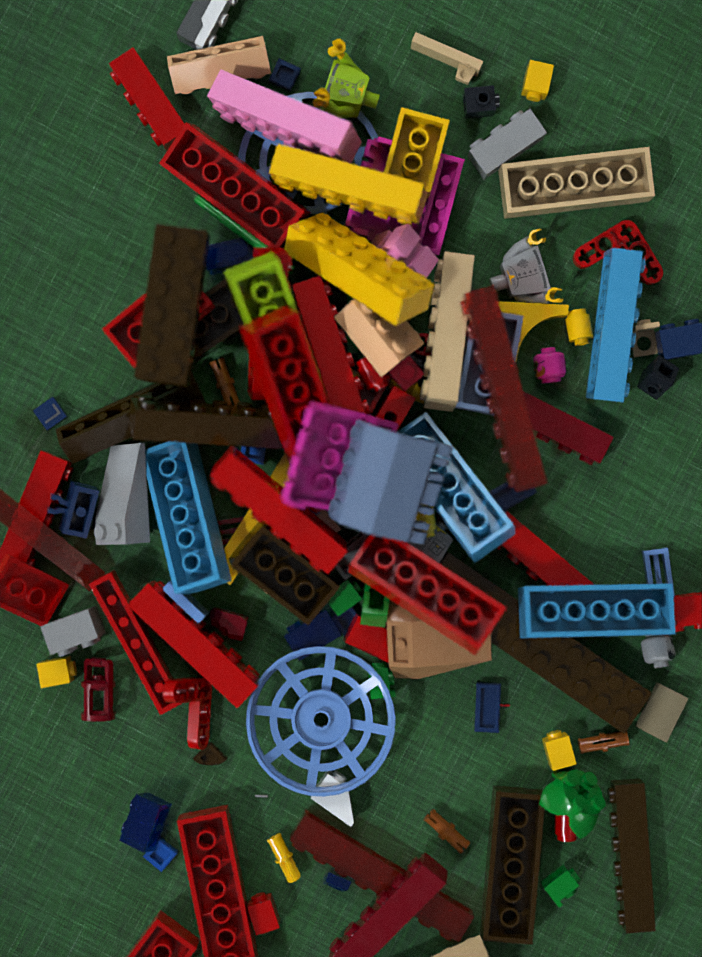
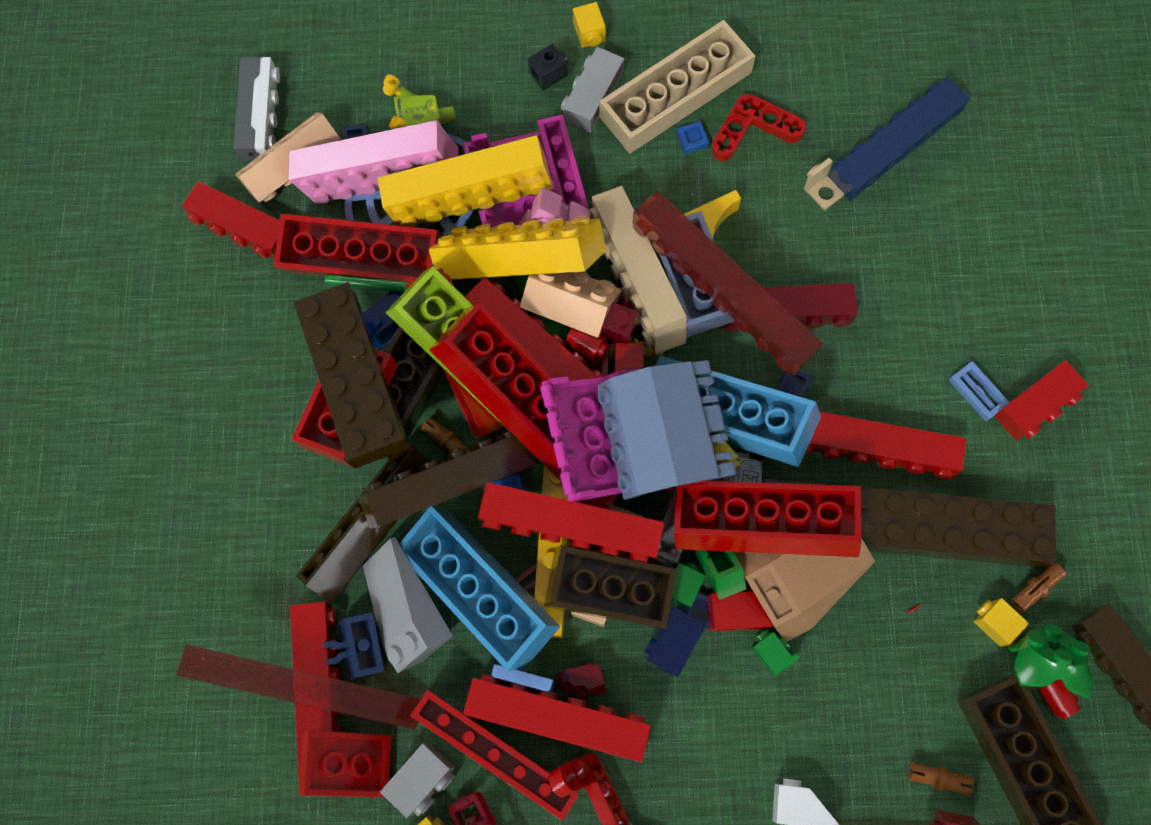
camera: 25 degrees left, 15 degrees down
(50, 413) = (283, 566): dark blue tile -> none
(317, 736) = (755, 740): medium blue dish -> none
(416, 147) = (510, 117): yellow brick -> none
(467, 65) = (496, 45): tan hinge -> none
(487, 707) = (899, 619): dark blue tile -> none
(525, 273) = (680, 182): light grey torso -> none
(549, 365) = (752, 255): dark pink head -> none
(561, 884) = (1097, 766): green brick -> none
(564, 233) = (692, 137): none -> blue tile
(579, 327) = (757, 208): yellow brick -> none
(596, 610) = (947, 450): dark azure brick -> none
(614, 324) = (791, 183): dark azure brick -> none
(657, 377) = (859, 210): black brick -> none
(658, 650) = (1029, 462): light grey head -> none
(661, 712) = (1076, 523): dark tan brick -> none

